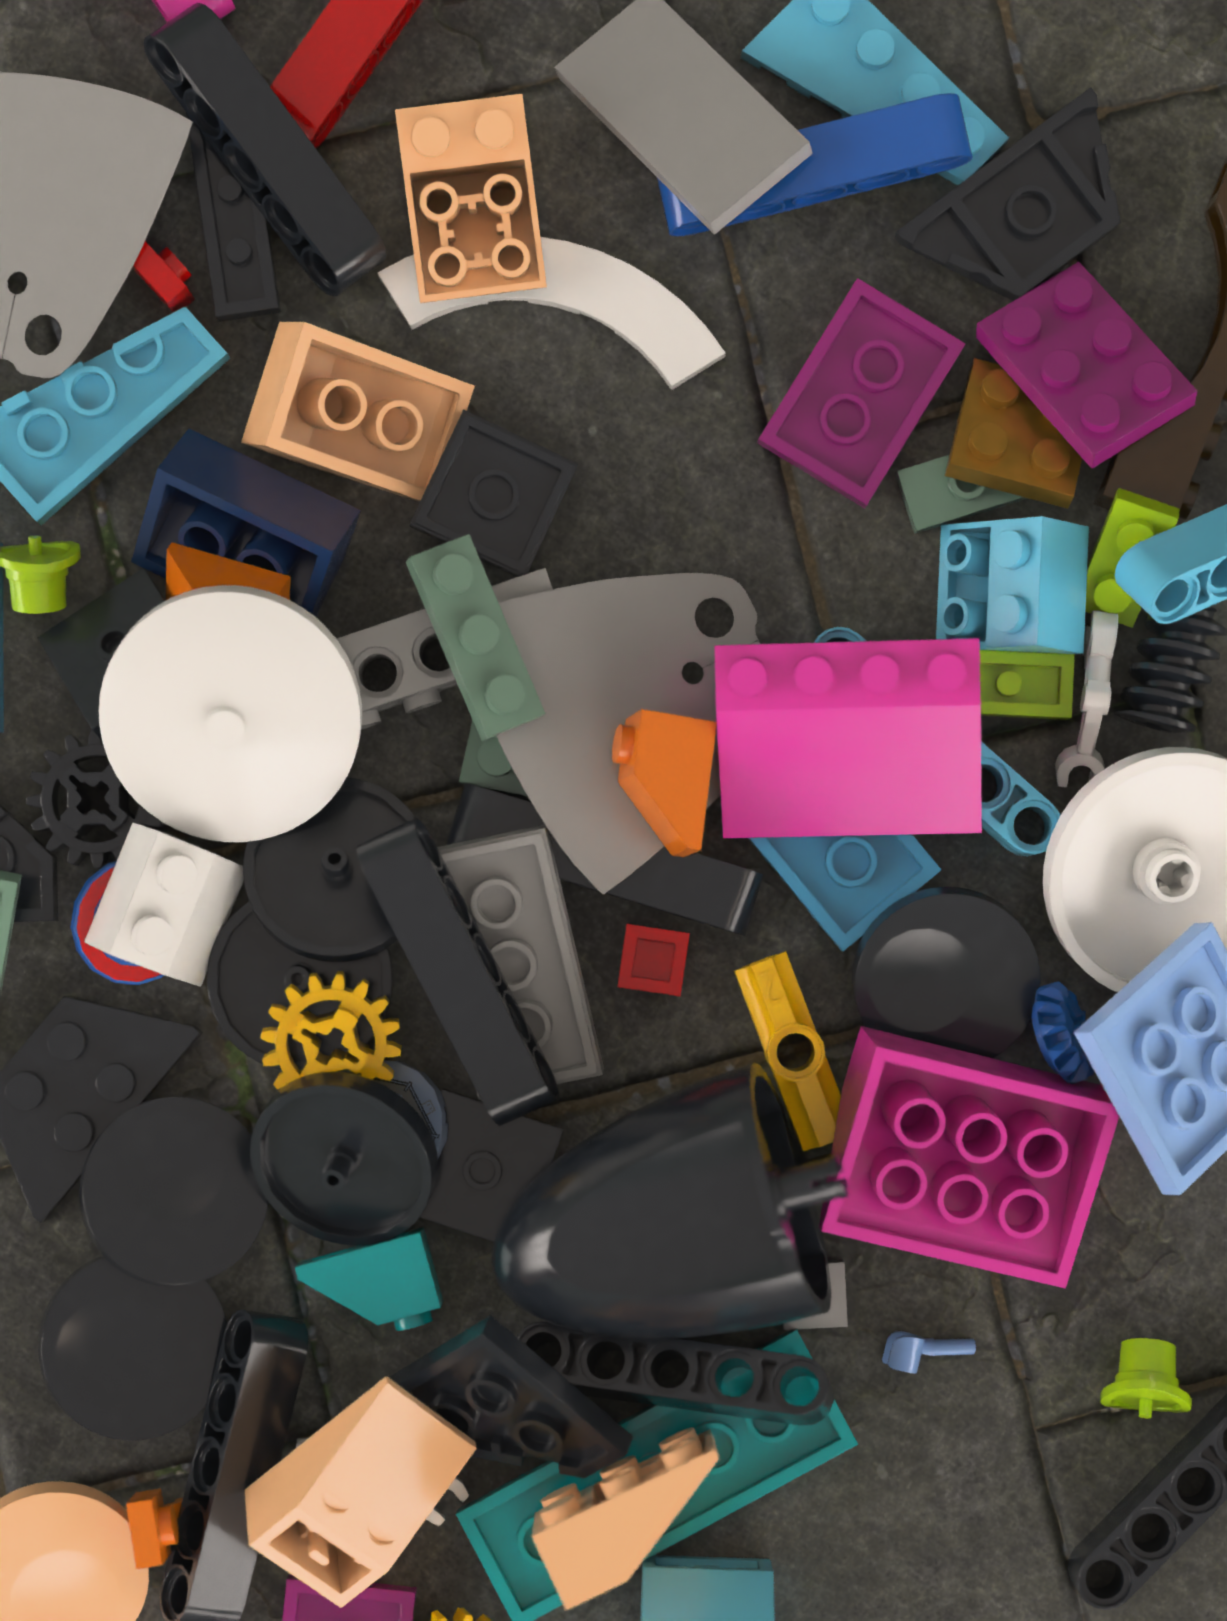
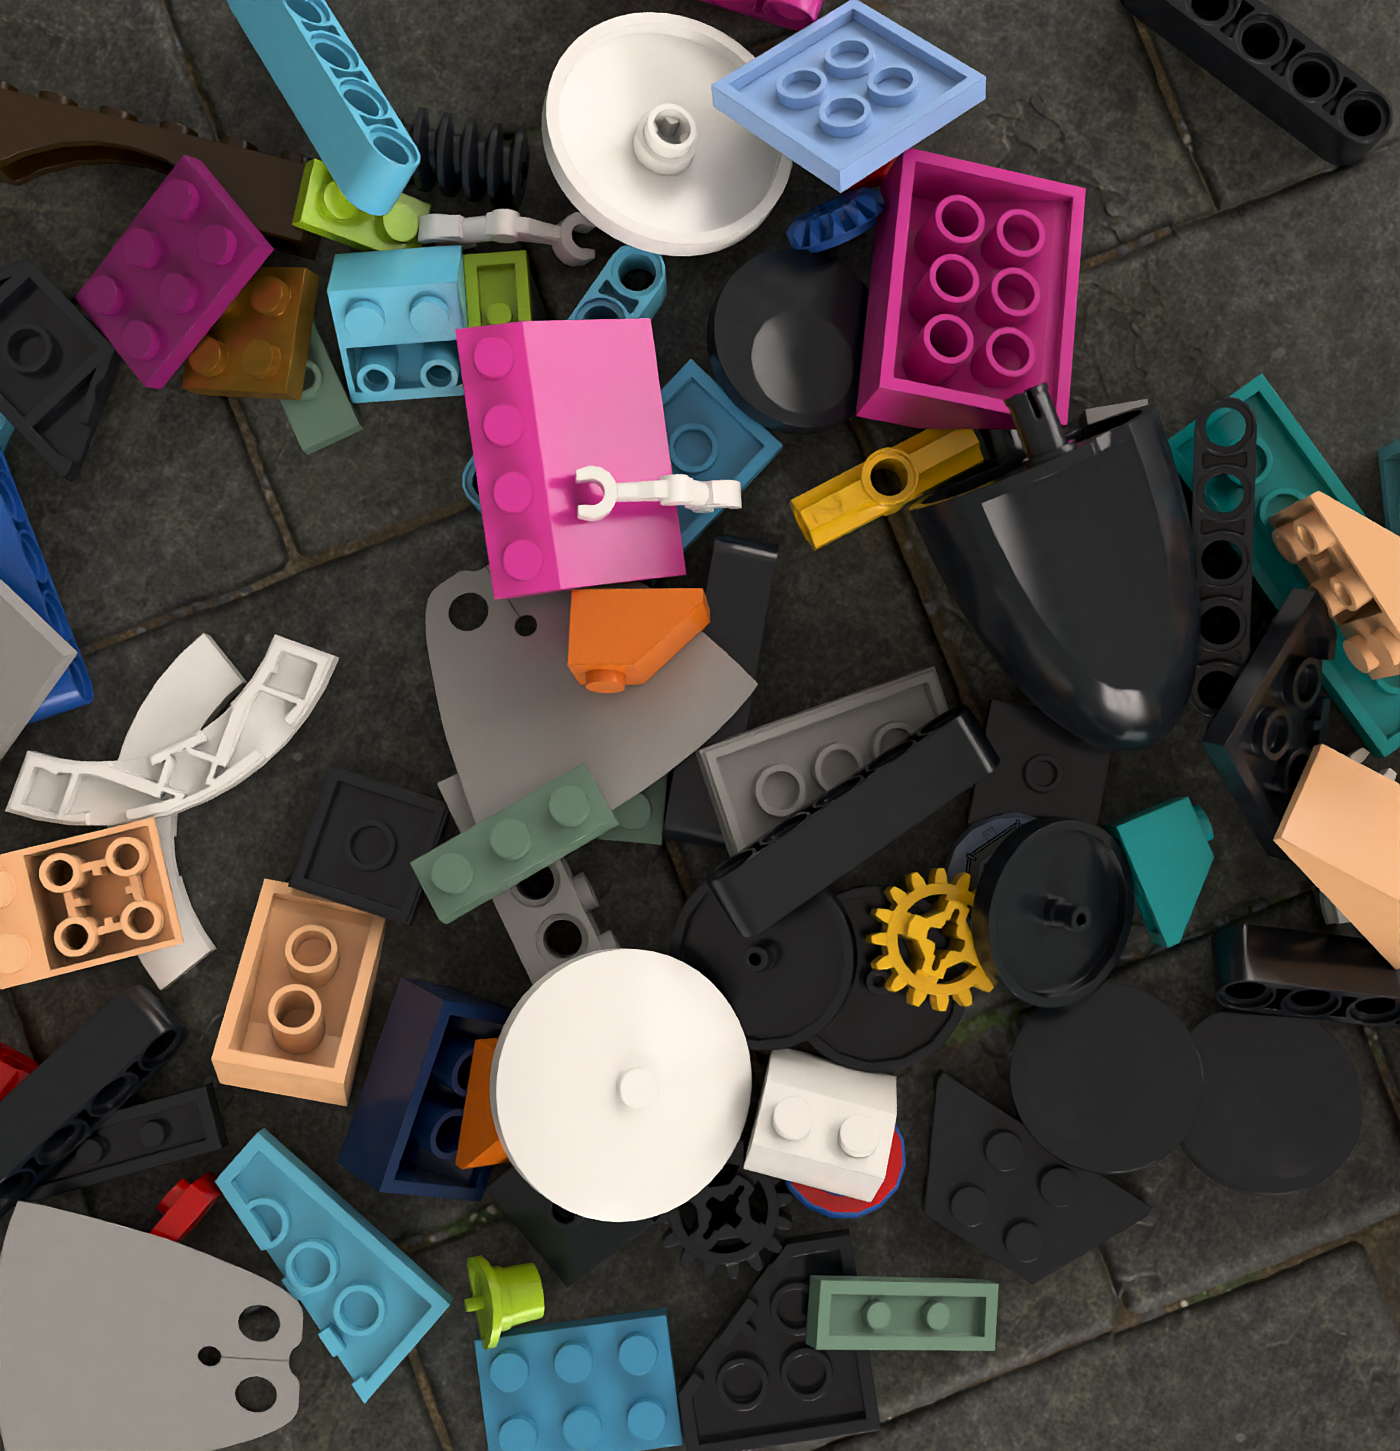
camera: 85 degrees left, 0 degrees up
(589, 323) = (190, 770): none -> white tile
(653, 960) = (814, 630): red plate -> none
(800, 827) = (669, 490): none -> white piece
(861, 393) = (229, 494): magenta plate -> none
(905, 1349) = (1159, 341): medium blue hand -> none
(1146, 1379) = (1159, 103): lime piece -> none

